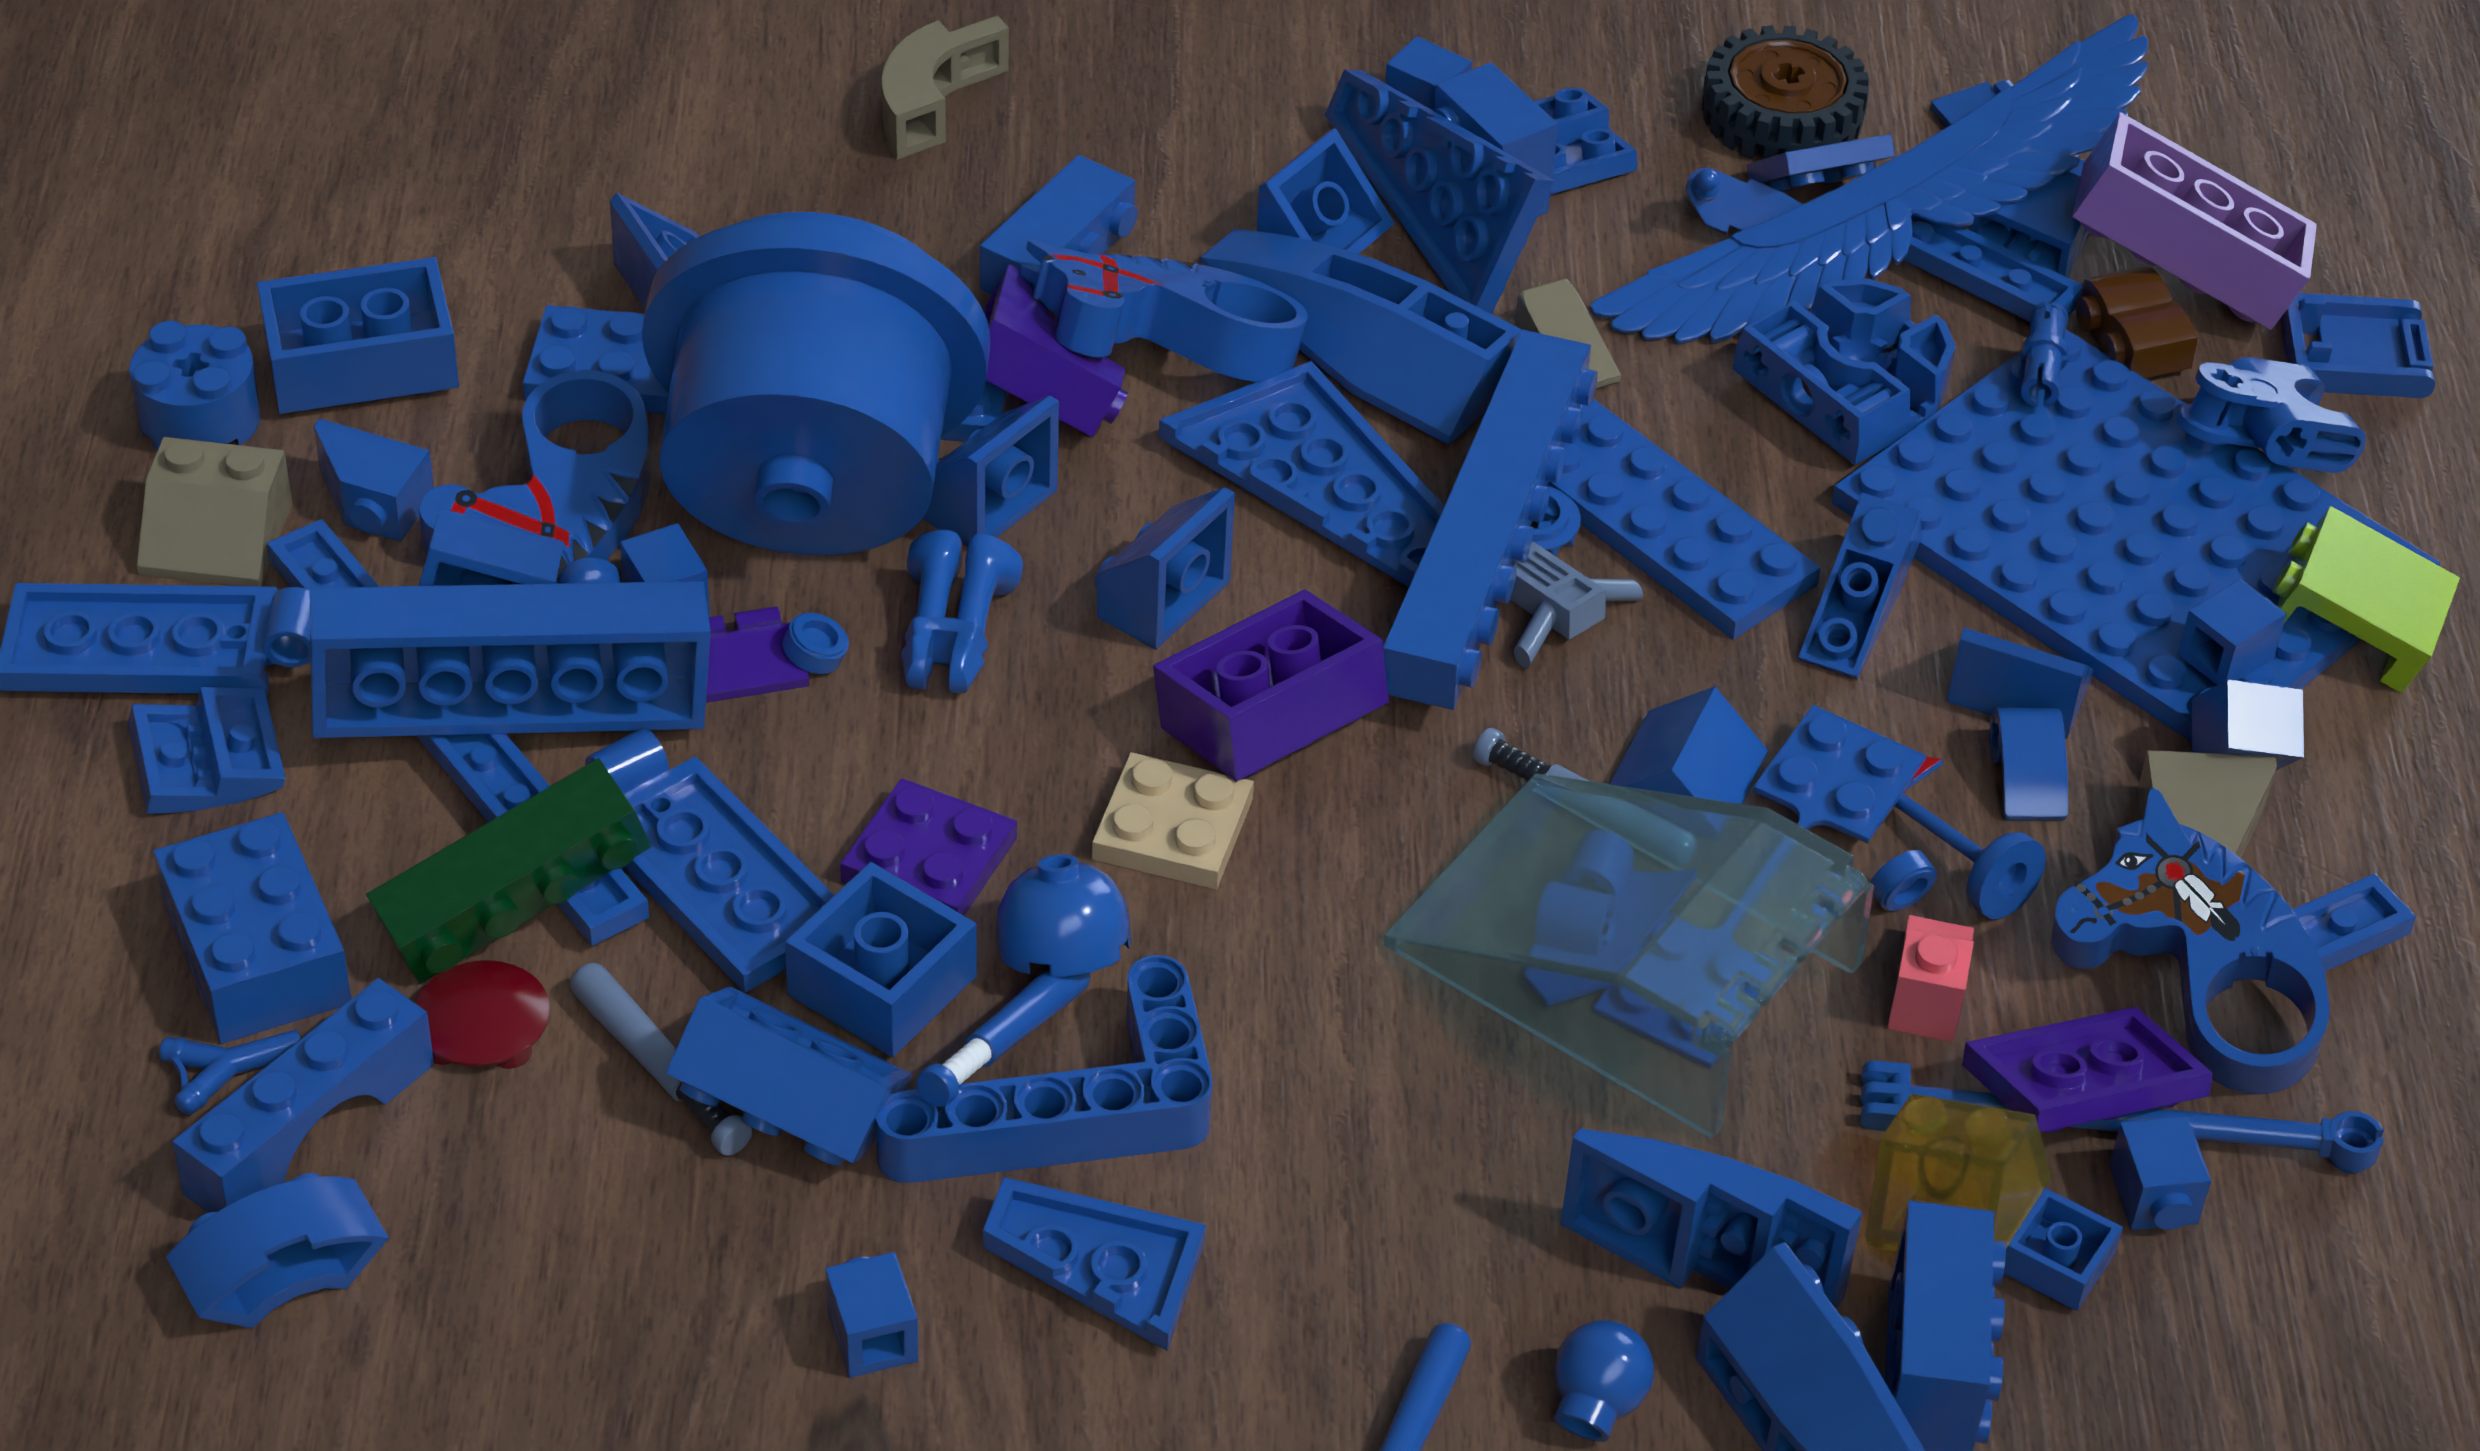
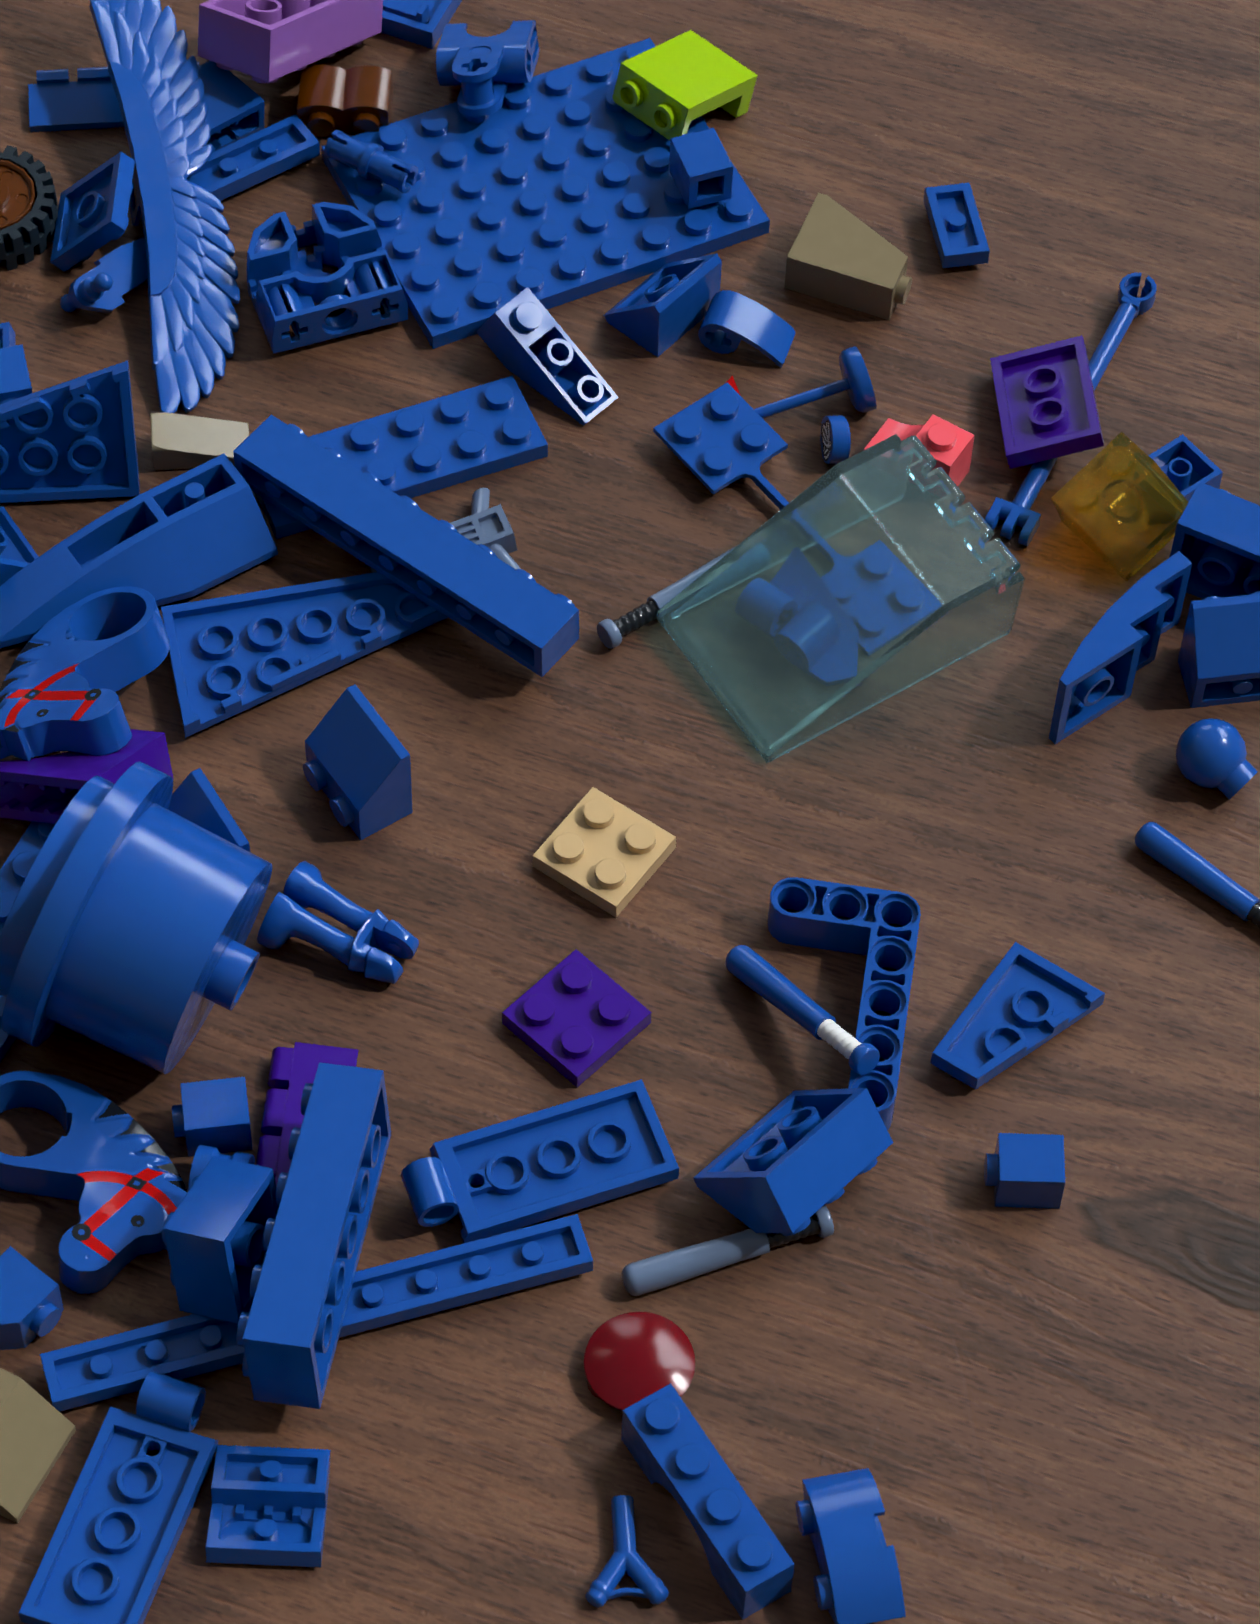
camera: 70 degrees left, 10 degrees up
(252, 927) = (504, 1502): blue brick -> none
(509, 870) = (531, 1296): dark green brick -> none
(815, 643) = (327, 1032): blue tile -> none
(881, 959) = (704, 1069): blue brick -> none
(1063, 918) = (708, 944): blue cylinder -> none
(1271, 684) = (522, 738): dark purple brick -> none
(1694, 750) = (670, 525): blue slope -> none
(2159, 1173) = (1137, 401): blue brick -> none
(2220, 920) = (963, 280): blue animal -> none
(2249, 721) = (783, 197): piece -> none

